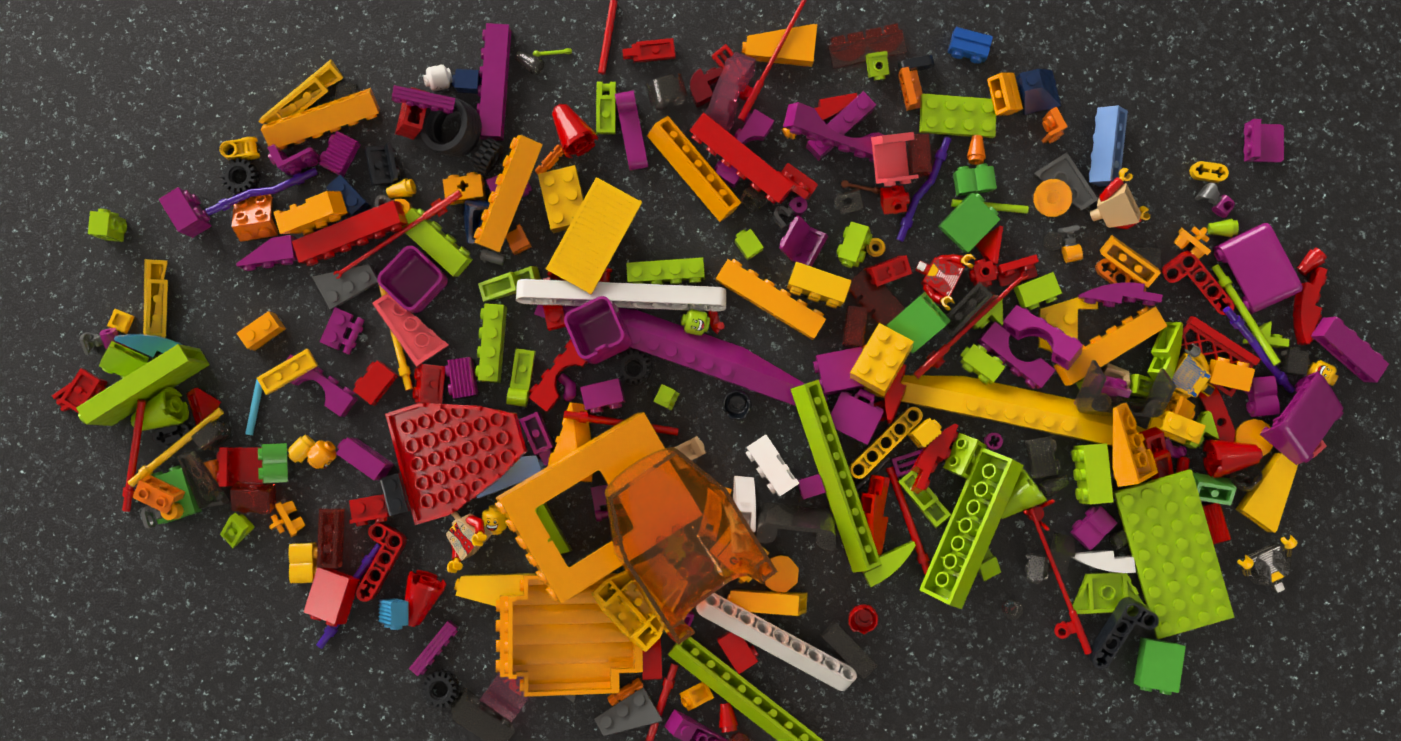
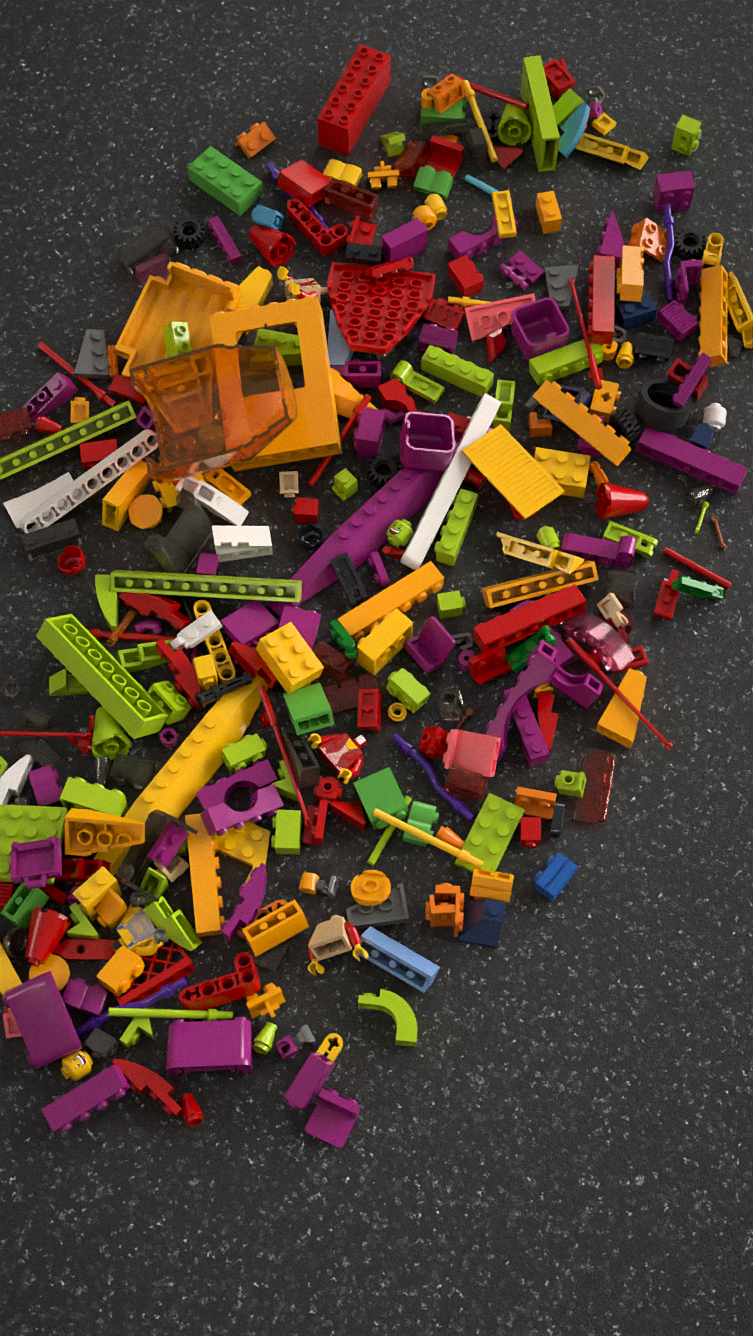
camera: 110 degrees right, 20 degrees down
(203, 591) = (353, 100): none -> red brick
(293, 676) = (256, 139): none -> orange bracket
(361, 682) = (225, 180): none -> bright green brick
(401, 461) = (391, 267): none -> red hinge
(443, 320) = (495, 344): none -> red piece
(548, 40) = (714, 519): none -> copper hinge
(588, 630) = (176, 338): none -> lime brick
(633, 23) = (697, 588): none -> green hinge
(640, 181) = (548, 538): none -> lime brick
(664, 180) = (539, 554): none -> yellow wedge
(696, 88) = (611, 609): none -> tan plate
(709, 421) = (306, 510): none -> red brick
(735, 332) = (380, 573): none -> magenta plate
(765, 149) = (519, 655): none -> green plate
(766, 348) = (348, 579): none -> black plate
(784, 90) = (581, 688): none -> magenta arch
(810, 689) = (26, 503): none -> white sticker
(836, 321) = (343, 639): none -> green hinge
(887, 461) = (196, 631): none -> white hinge
(891, 513) = (155, 626): none -> magenta arm
(912, 537) = (122, 627): none -> orange piece
(939, 81) = (530, 832): none -> red brick
(942, 414) = (215, 693): none -> black pin
(991, 129) = (462, 856): none -> yellow bar
(1034, 124) = (451, 894): none -> orange bracket
(1147, 130) = (398, 1010): none -> lime arch
(1185, 491) = (36, 862): none -> magenta piece
(1250, 169) = (309, 1080): none -> magenta brick

